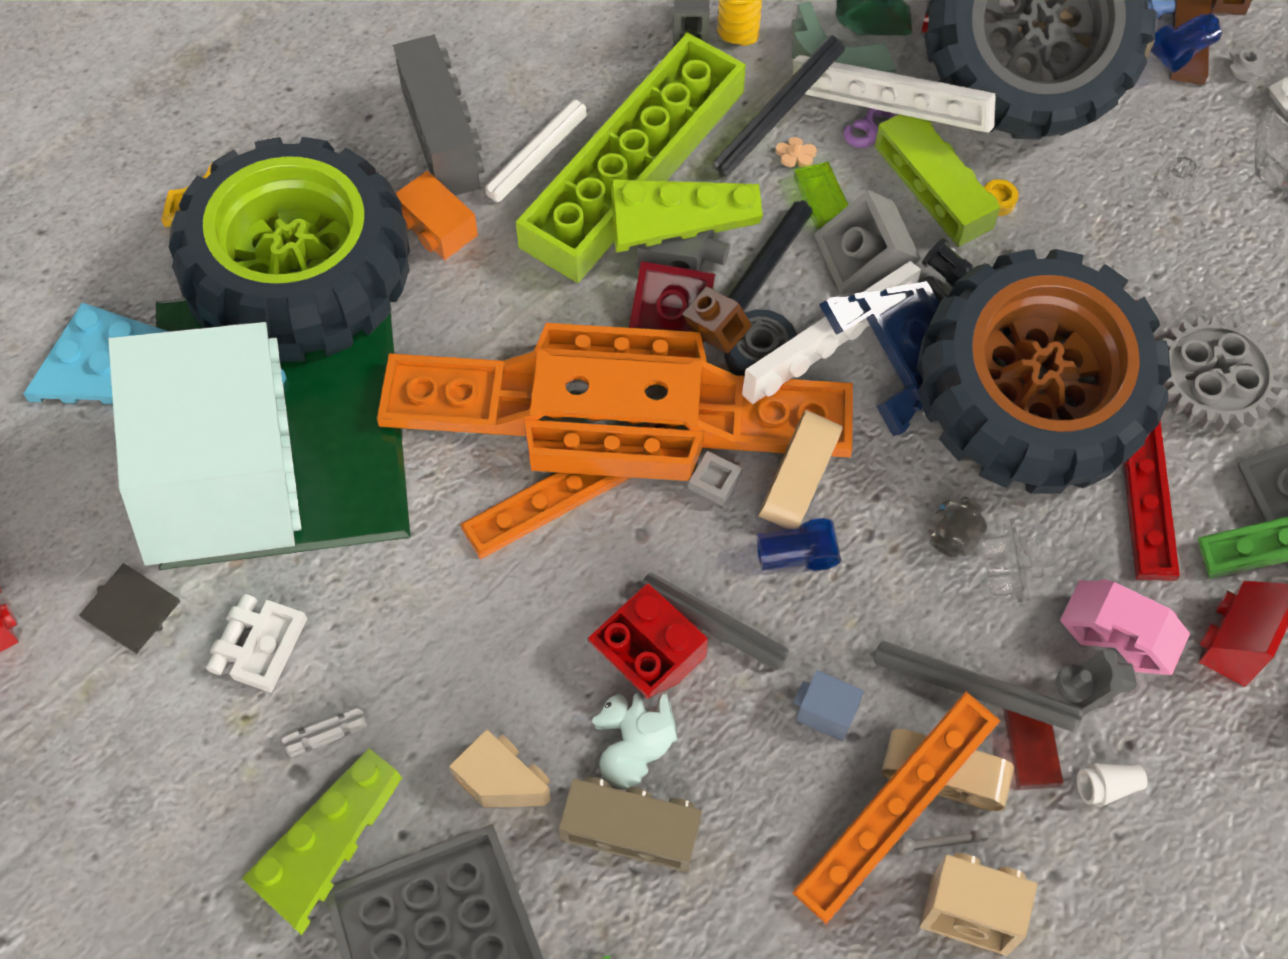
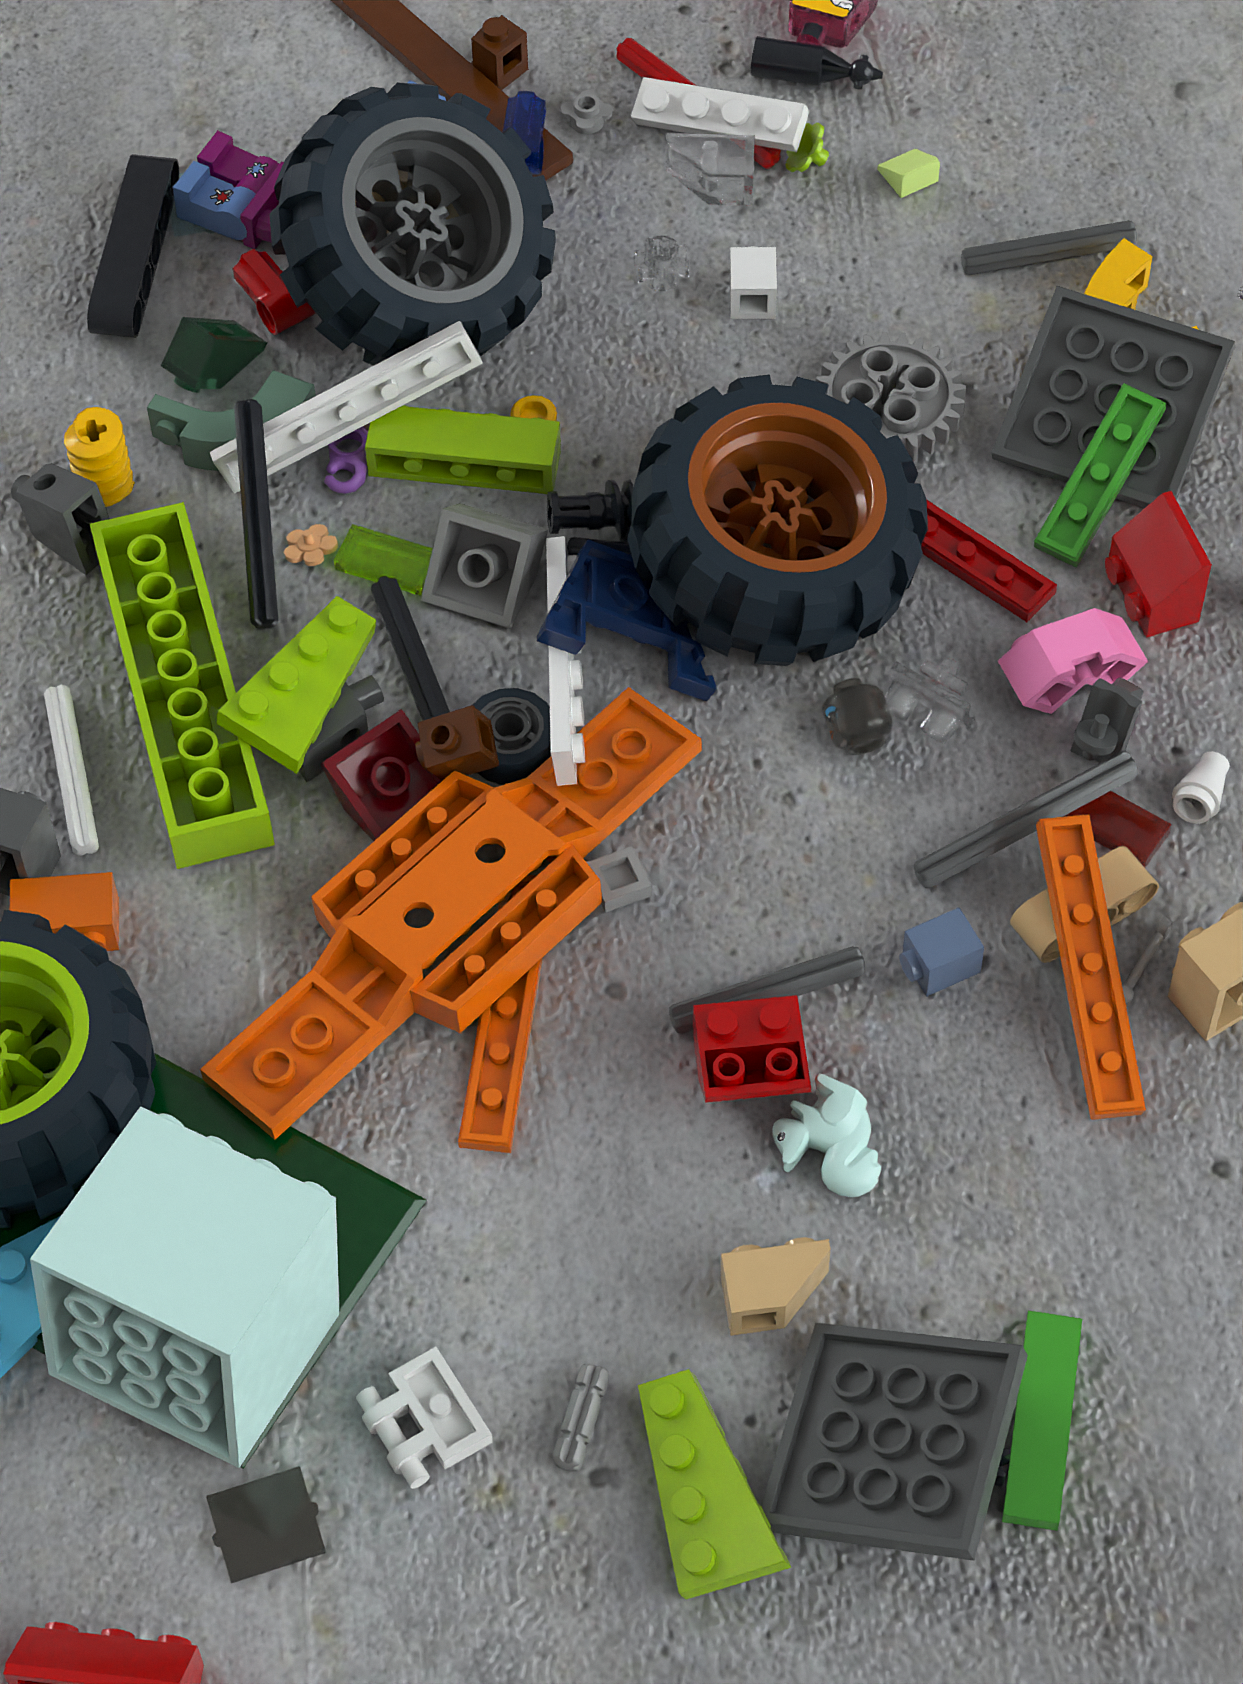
camera: 50 degrees left, 5 degrees down
(630, 823) = (917, 1201): dark tan brick -> none
(800, 471) = (687, 796): tan beam -> none
(809, 545) = (762, 852): clear blue piece -> none
(1218, 236) = (753, 282): none -> white brick

